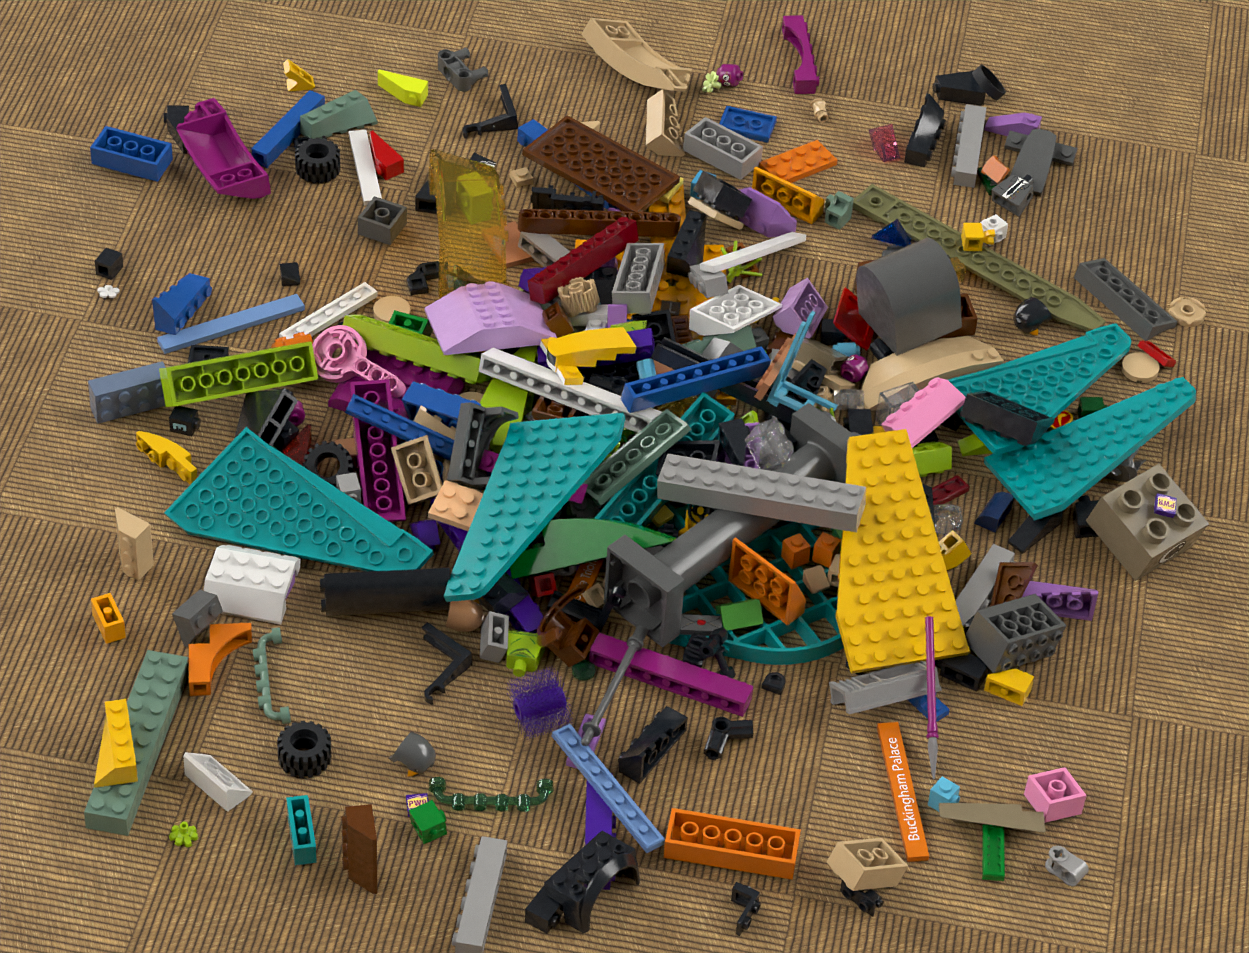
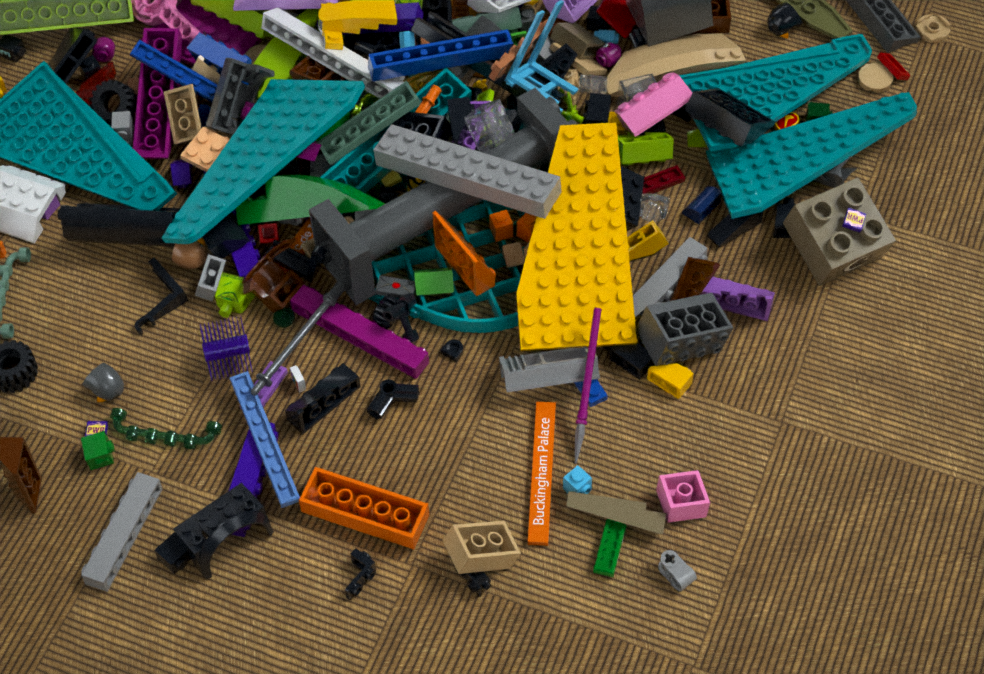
camera: 15 degrees right, 10 degrees up
(620, 728) = (298, 378): none -> white tile
(695, 425) = (429, 99): none -> orange axle

